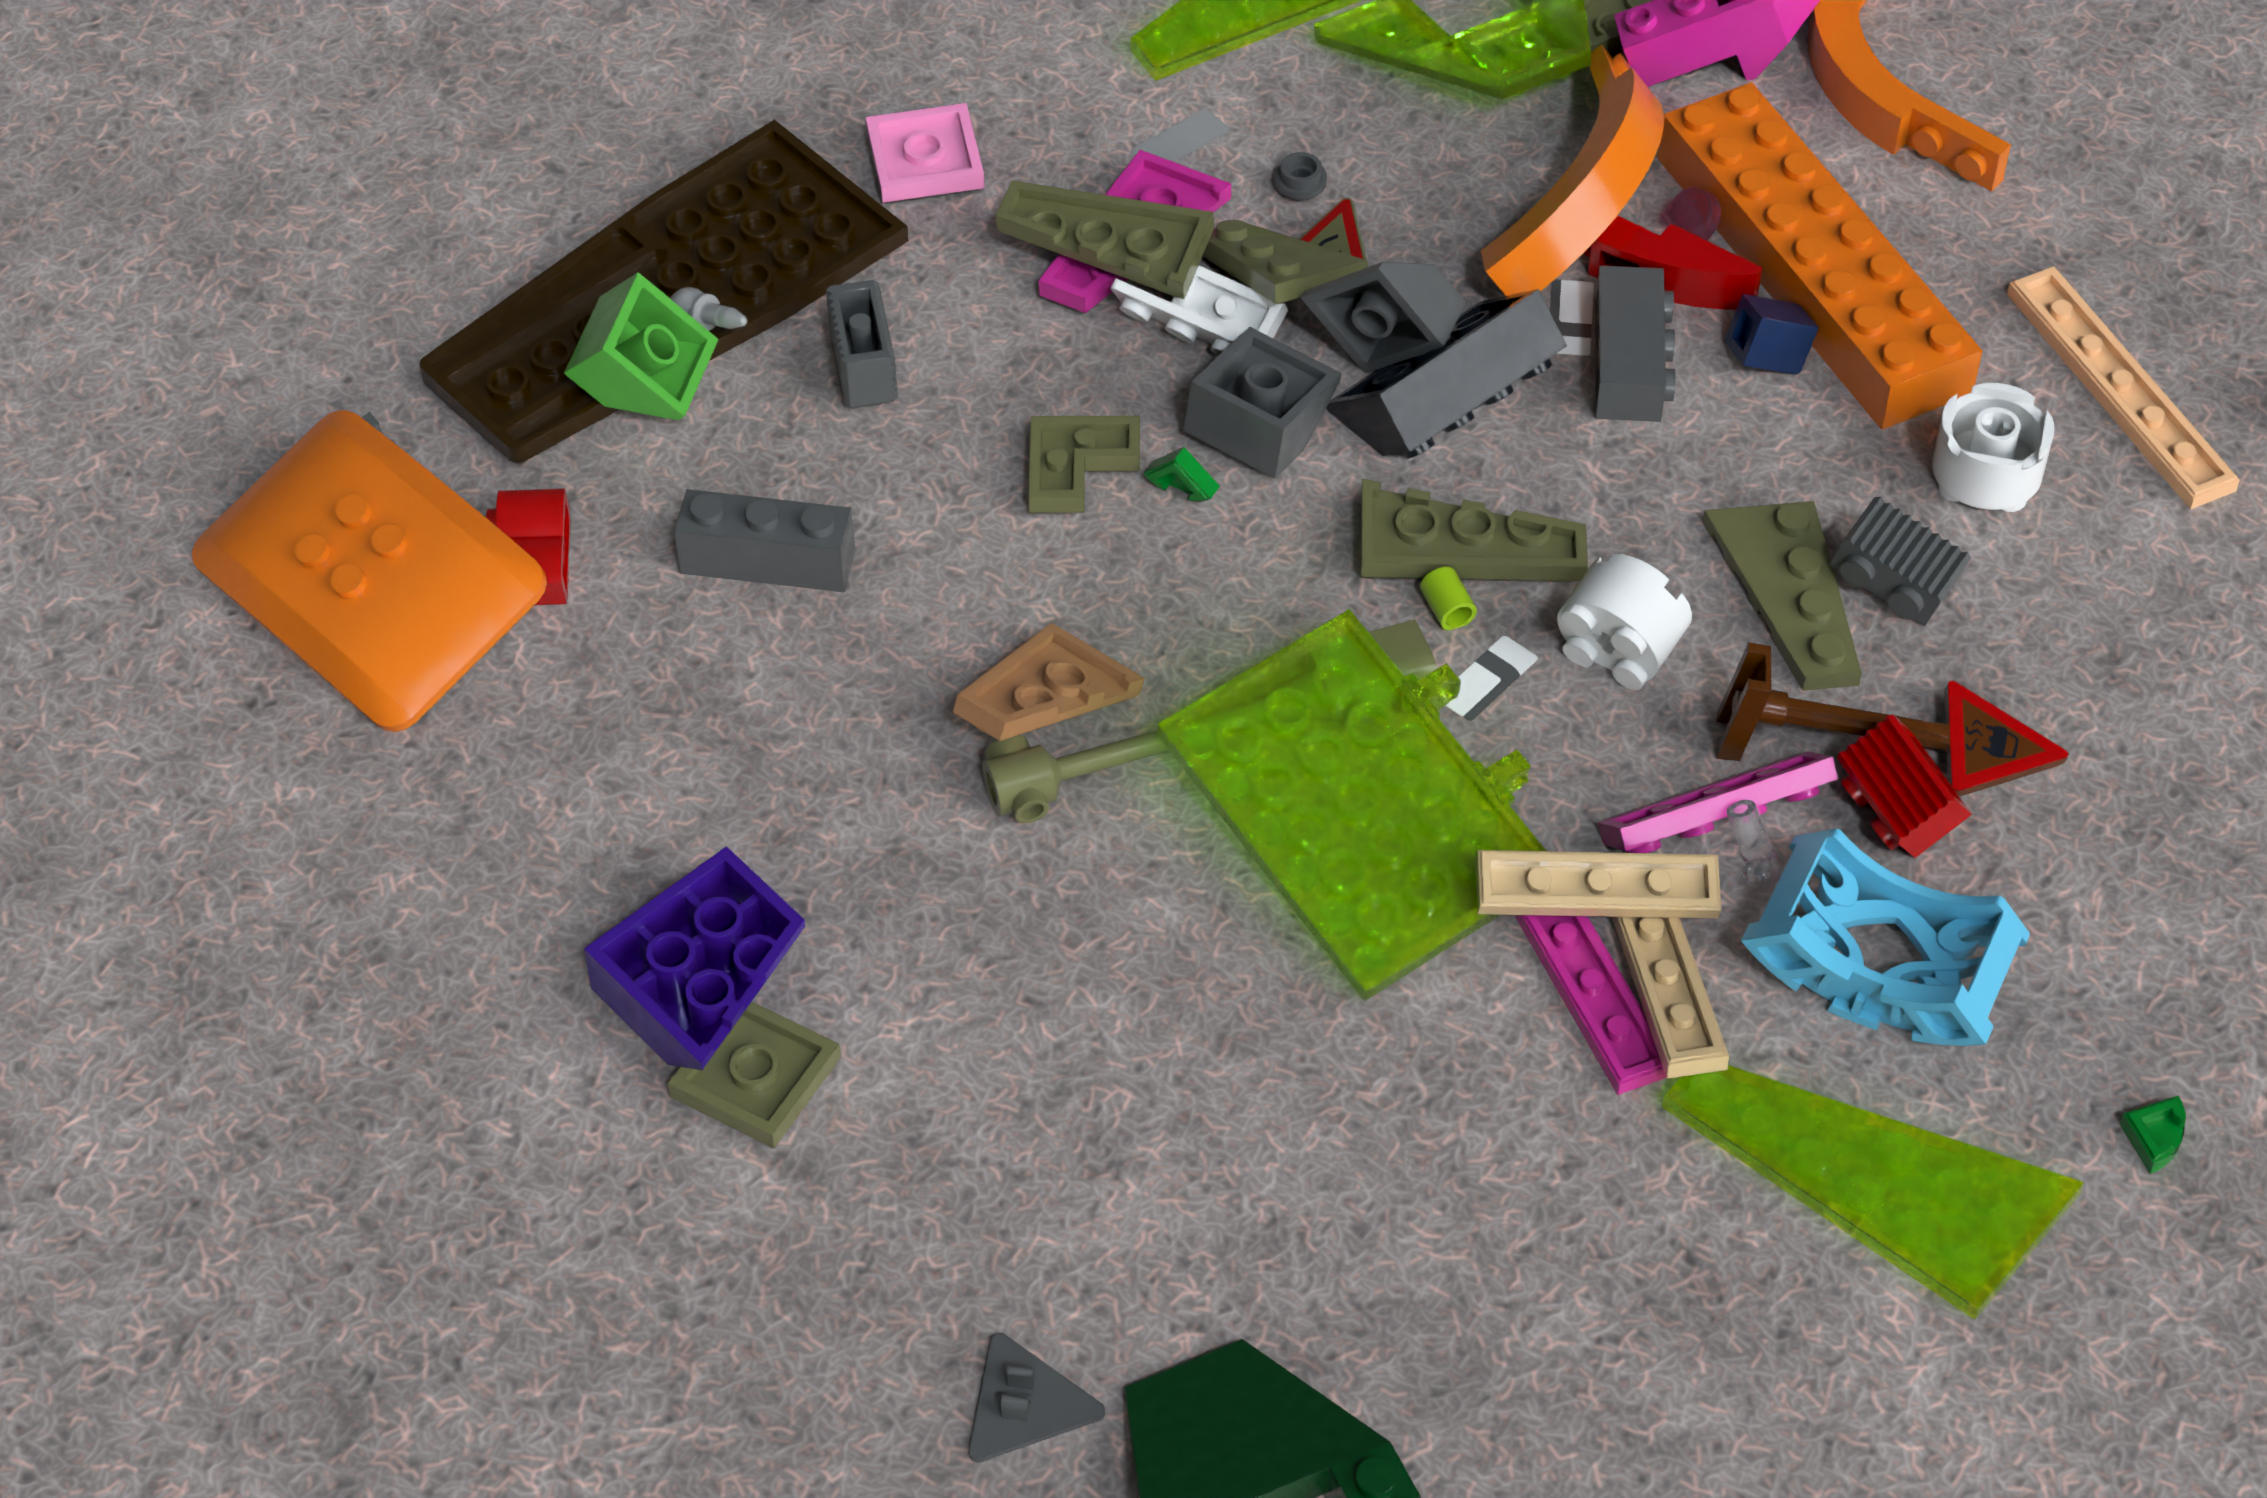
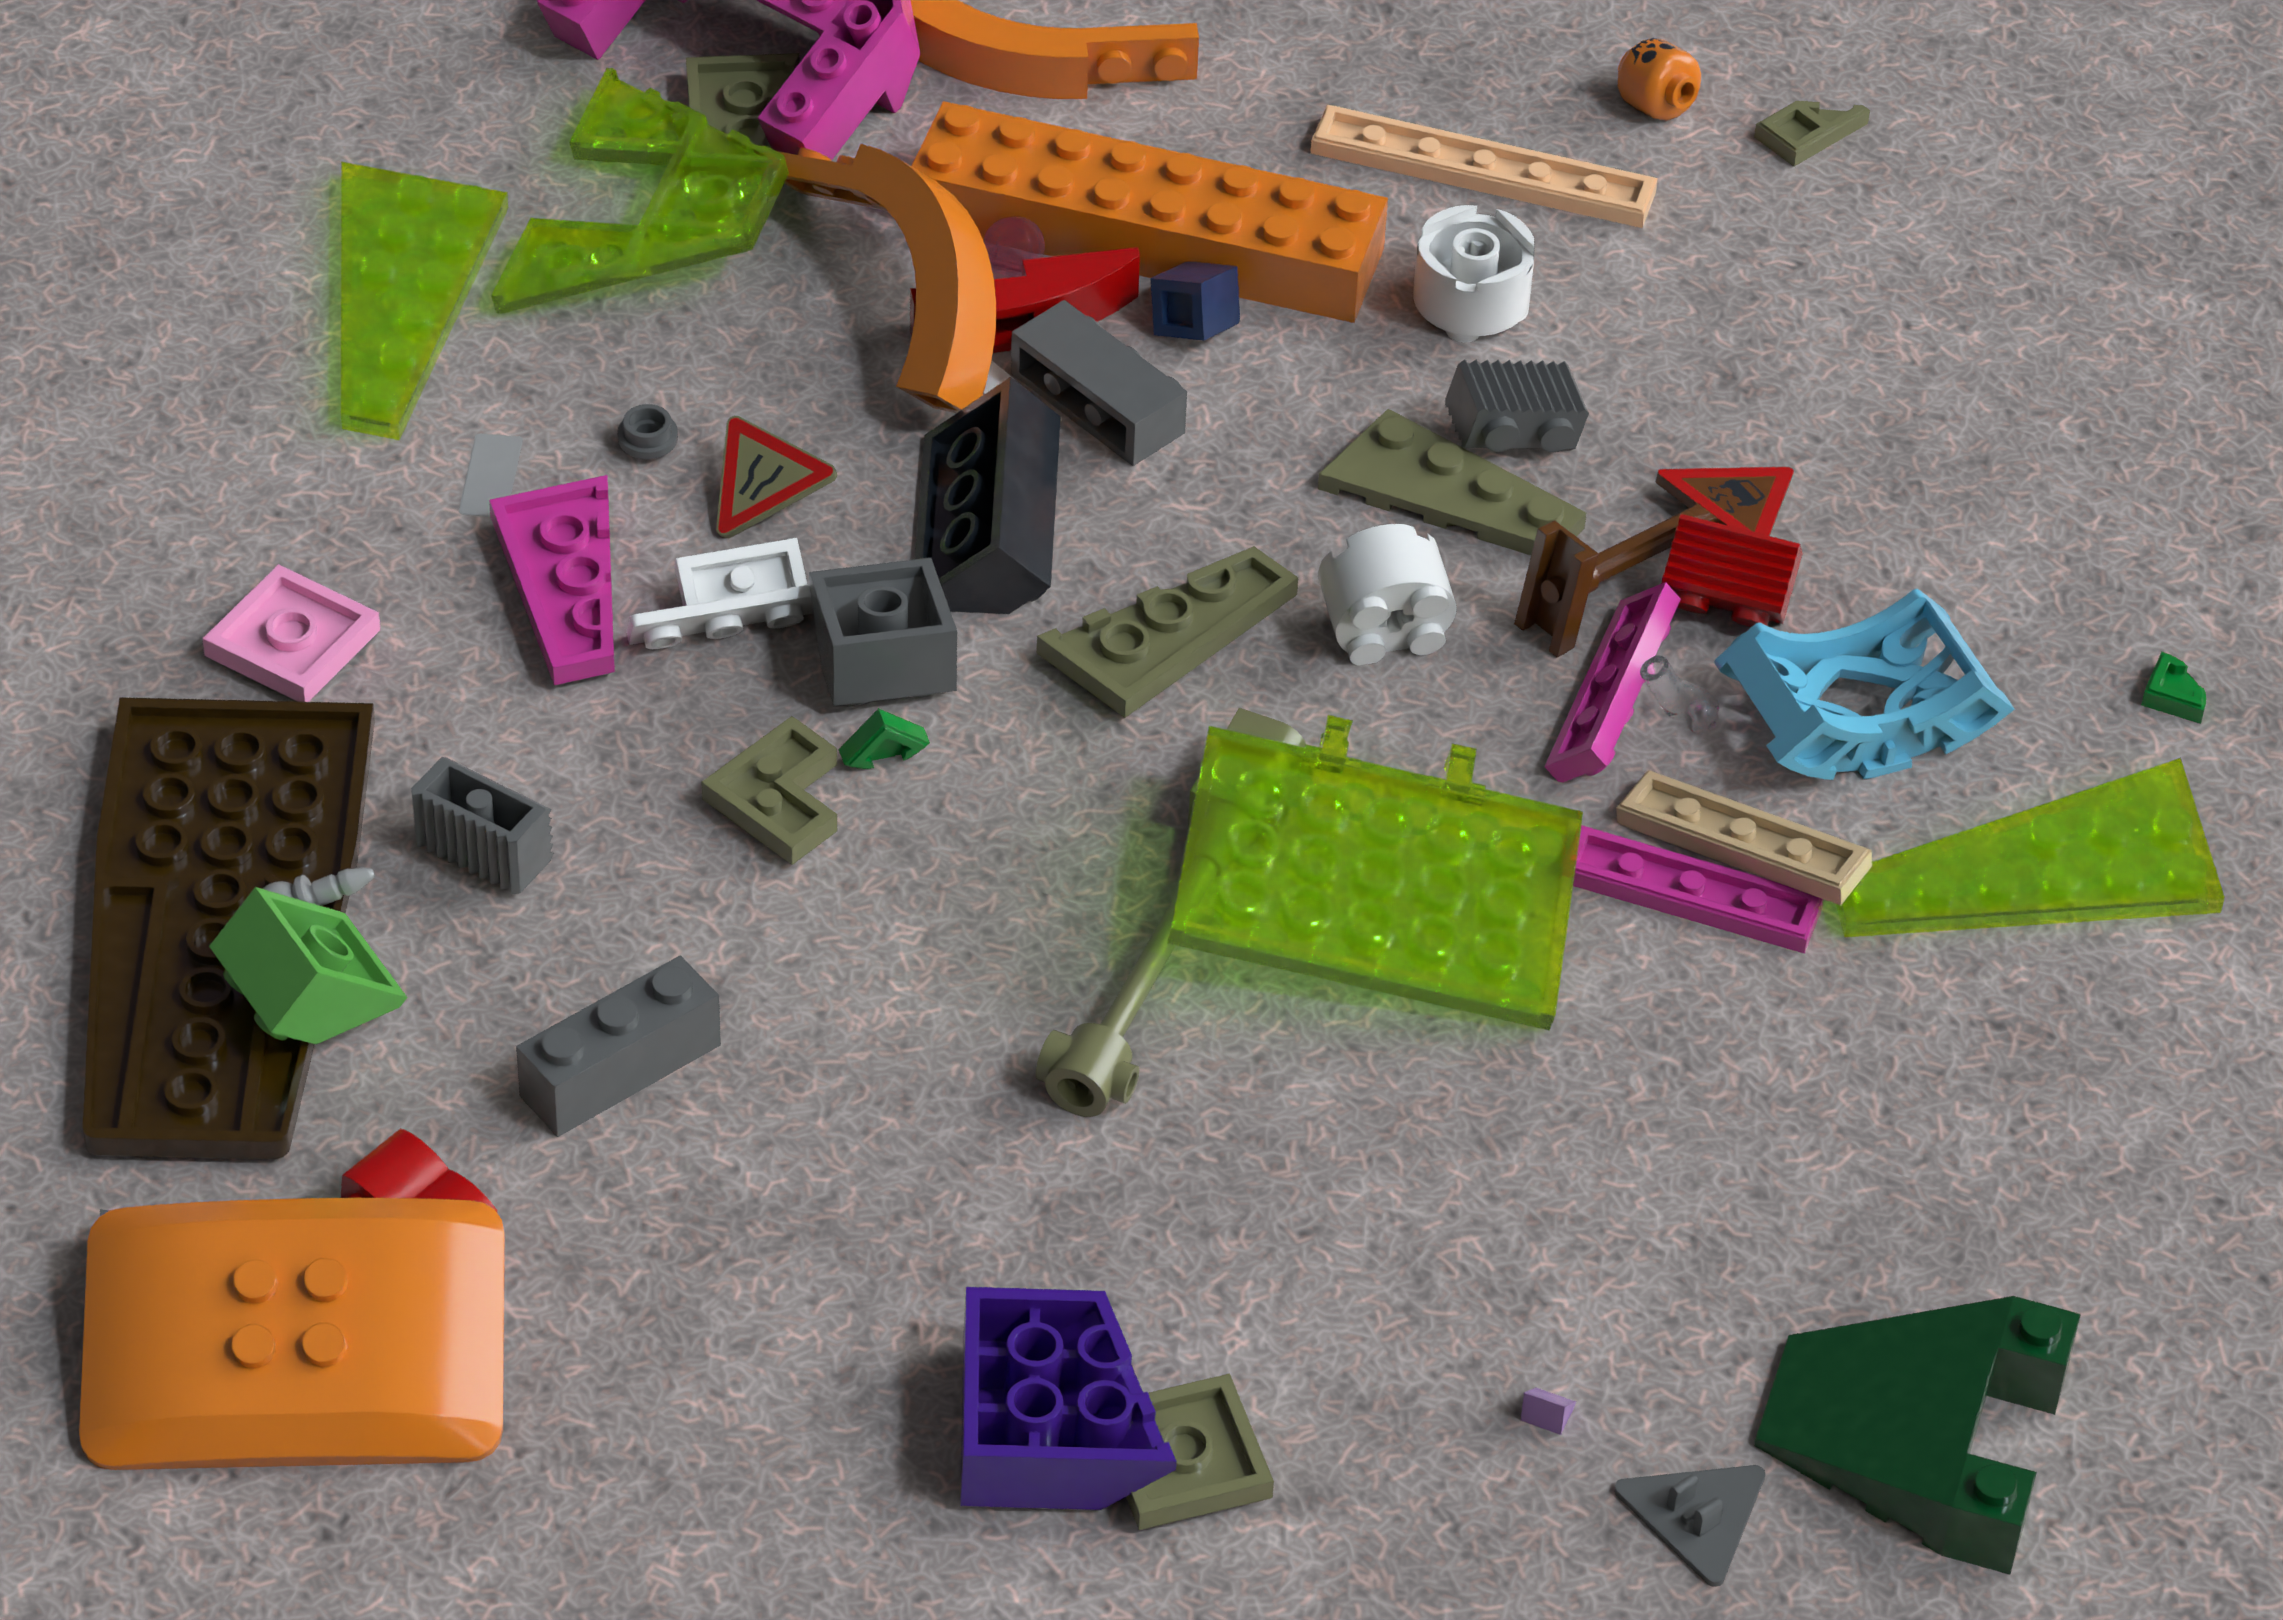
camera: 50 degrees left, 5 degrees down
(1020, 1244) = (1546, 1410): none -> medium lavender piece
(1044, 684) = (1011, 979): medium nougat wing -> none
(1117, 234) = (589, 576): olive wing -> none
(1274, 262) = (740, 512): olive wing -> none
(1387, 312) = (910, 485): dark grey slope -> none
(1448, 598) = (1217, 682): lime hinge -> none
(1490, 677) = (1309, 706): white sticker -> none
(1597, 884) = (1624, 802): tan tile -> none

